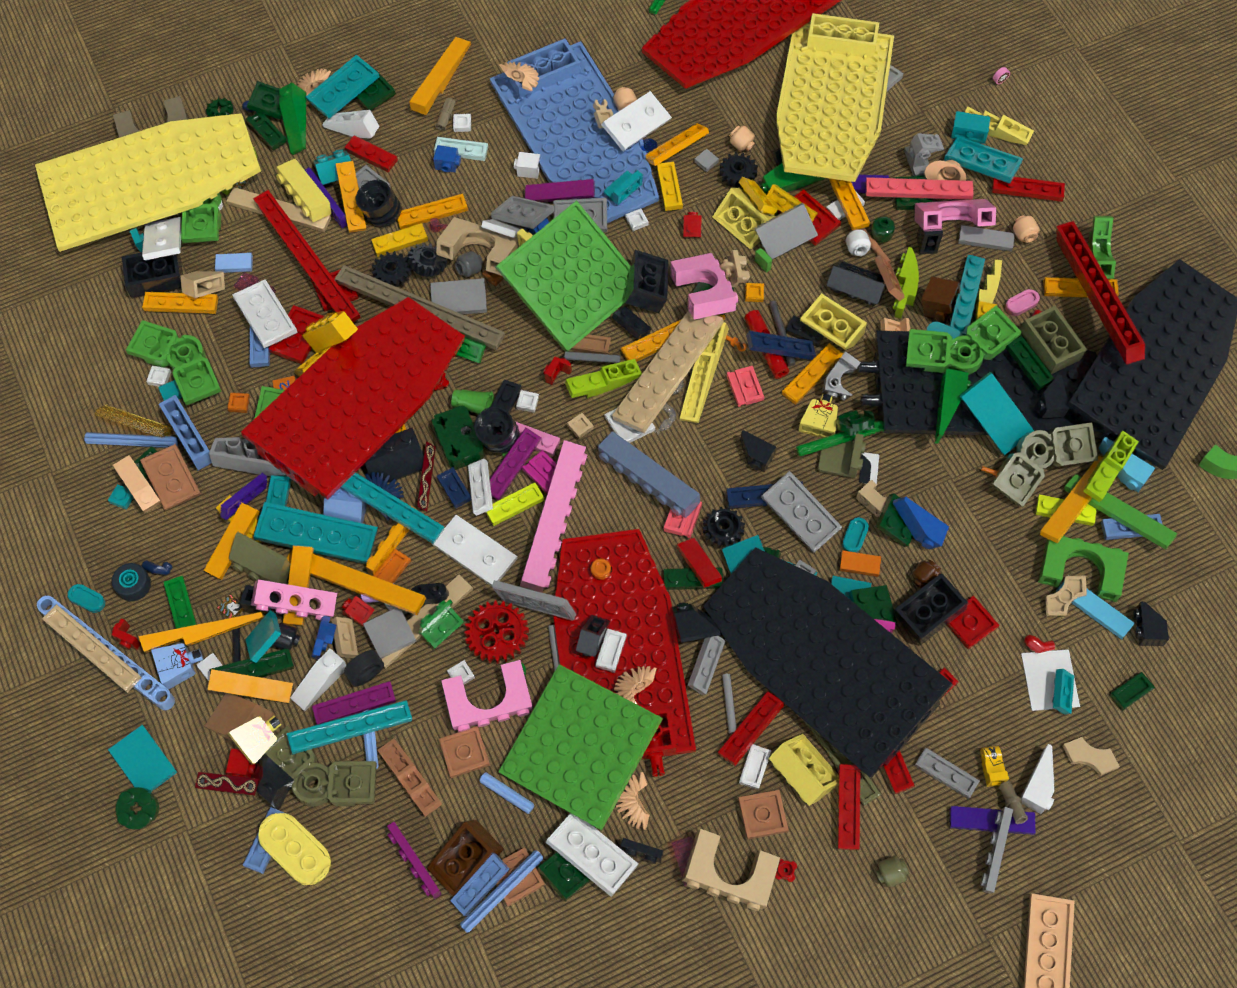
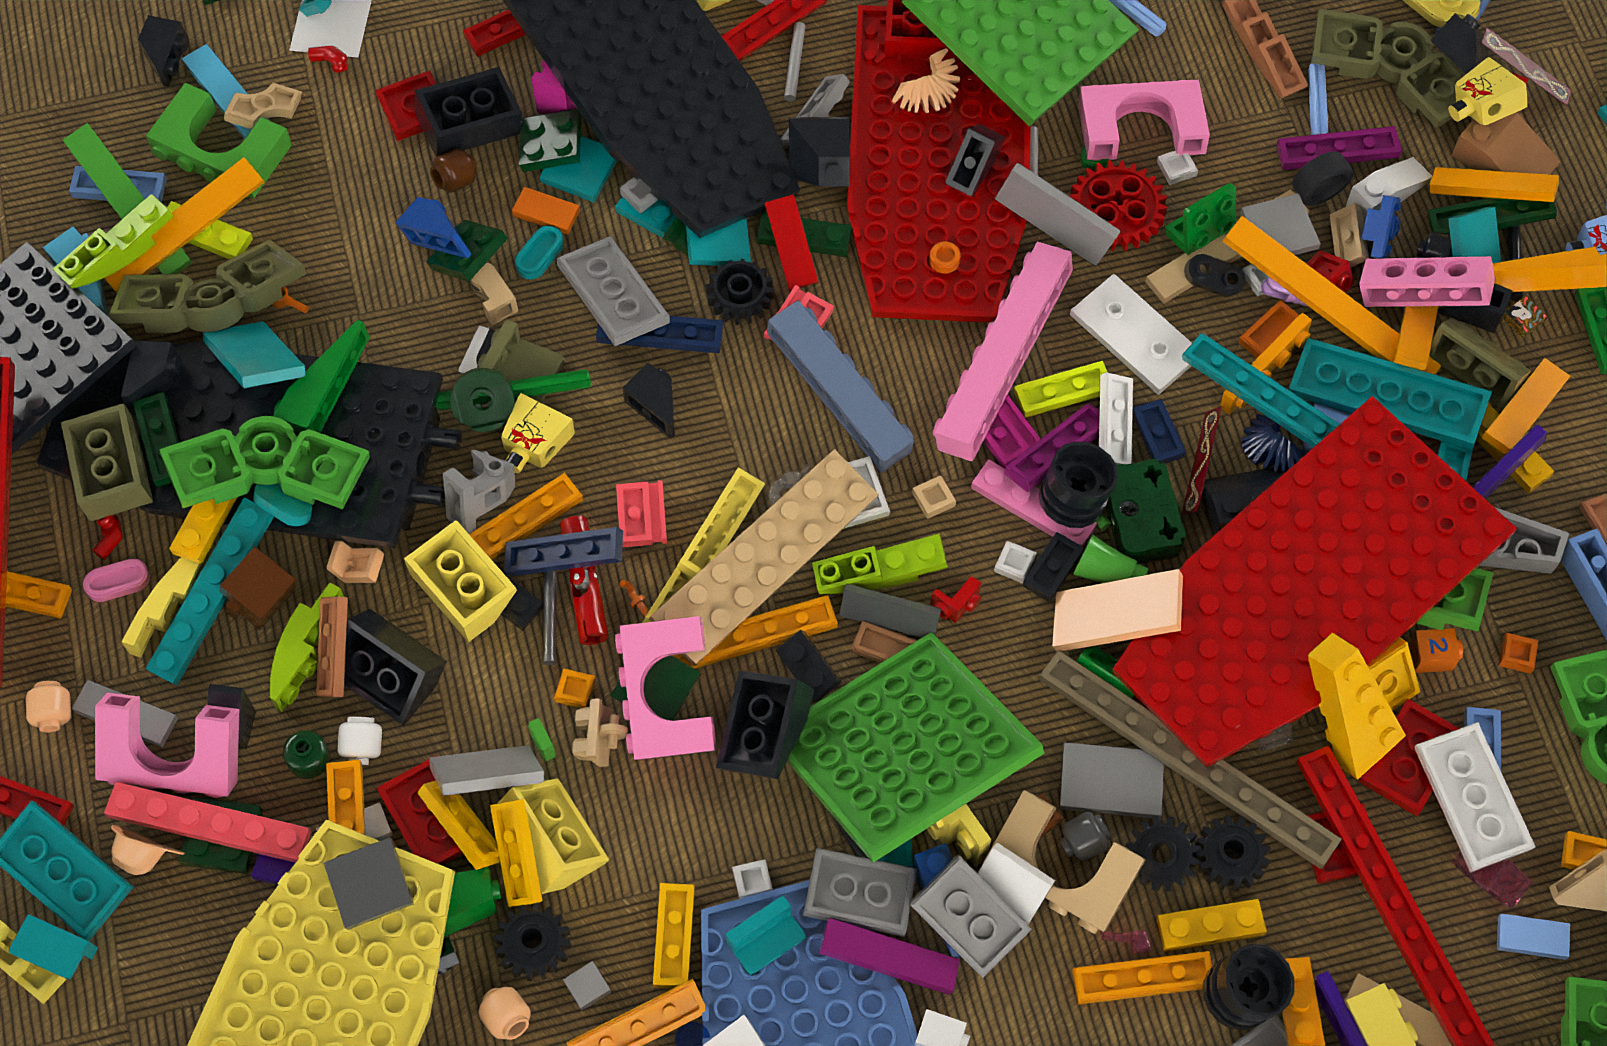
camera: 170 degrees left, 0 degrees up
(208, 663) = (1552, 236): white tile -> none
(349, 727) = (1347, 107): teal tile -> none
(464, 752) = (1184, 61): nougat tile -> none
(465, 367) = (1118, 610): none -> light nougat tile
(611, 650) = (949, 140): white tile -> none
(692, 225) = (651, 843): red bracket -> none
(823, 152) = (368, 883): none -> dark grey tile
(876, 248) = (327, 728): nougat piece -> none
(920, 150) = (177, 895): light grey tile -> none

